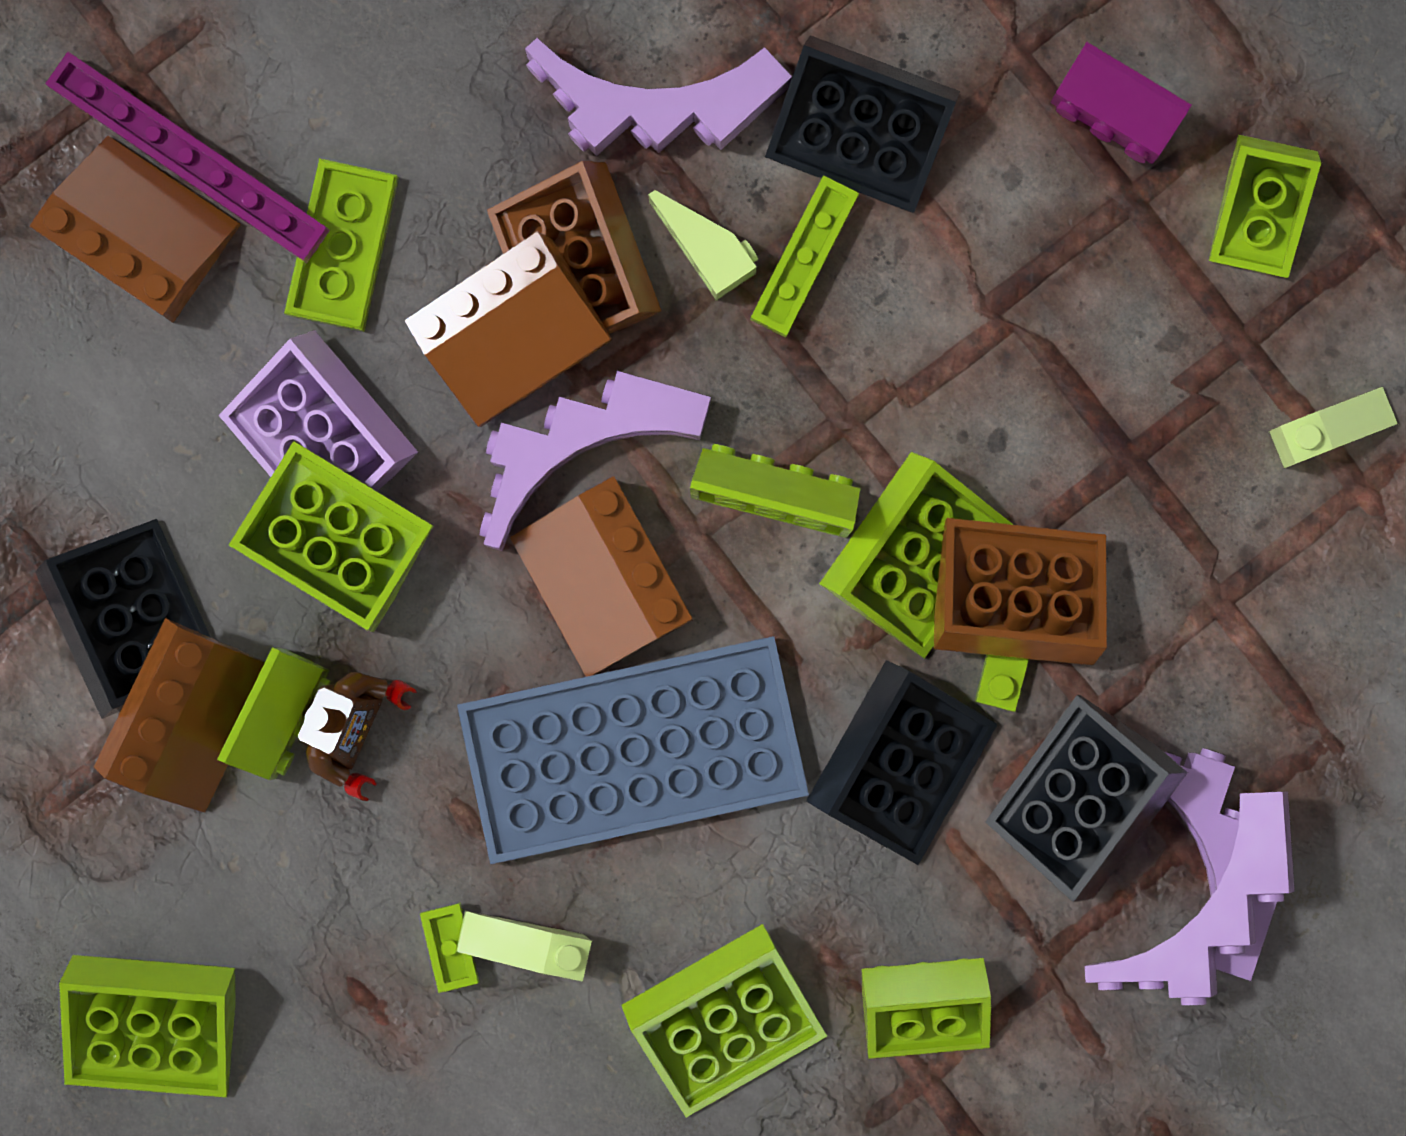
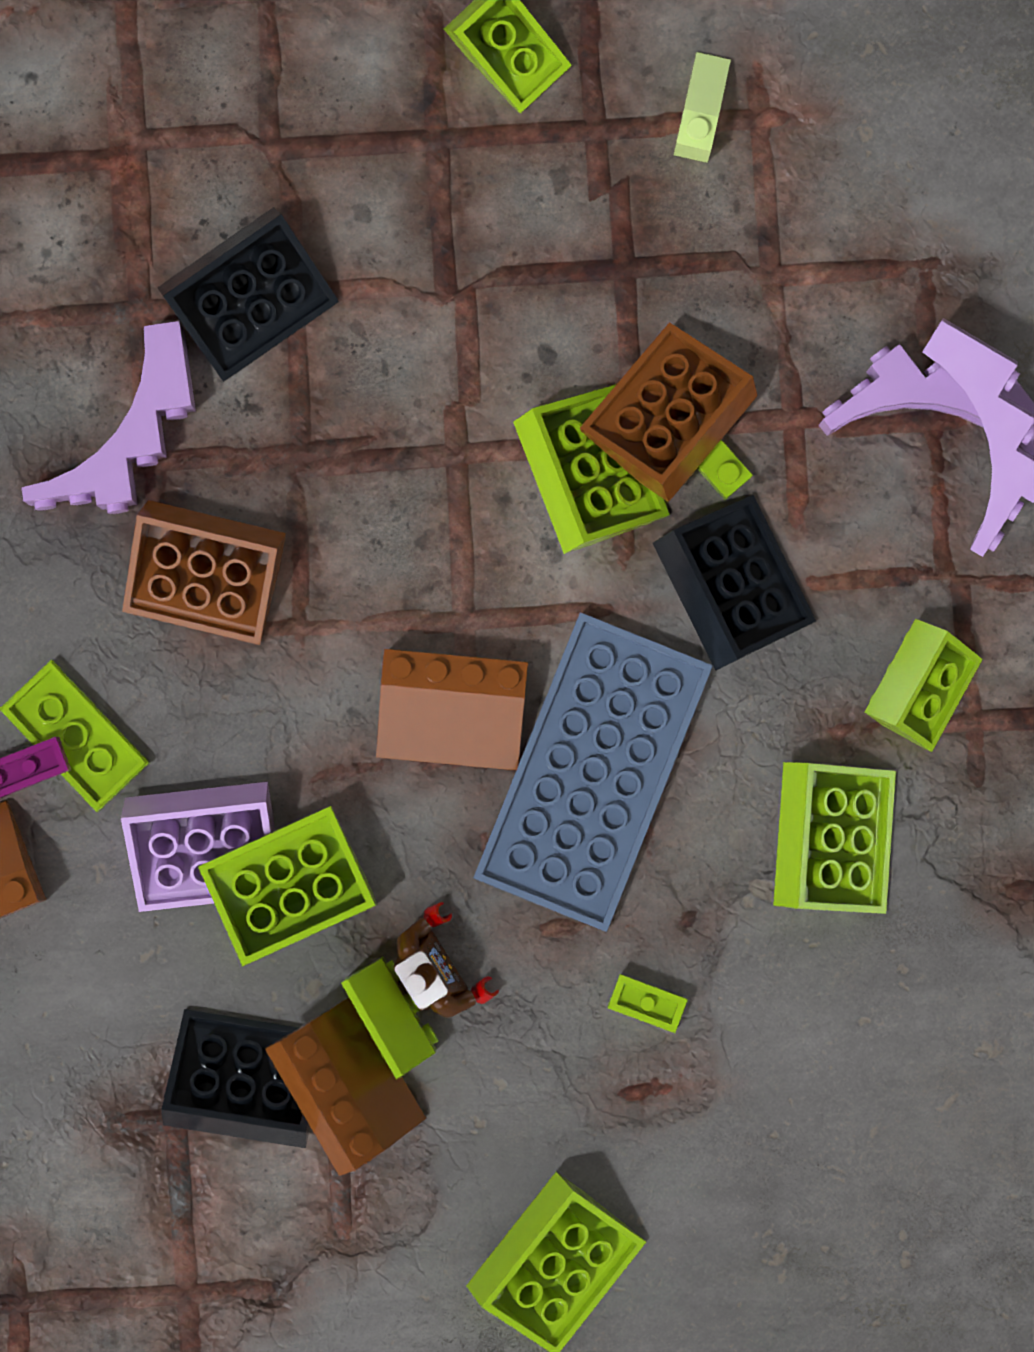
camera: 60 degrees left, 0 degrees up
(509, 328) = (223, 652): dark orange slope -> none
(525, 945) = (683, 945): yellowish green slope -> none
(529, 458) = (327, 702): lavender arch -> none
(710, 248) = (262, 467): yellowish green slope -> none
(775, 492) = (476, 539): lime slope -> none
(804, 256) = (317, 402): lime plate -> none
(1085, 799) = (850, 467): black slope -> none
(1119, 104) = (363, 98): magenta slope -> none

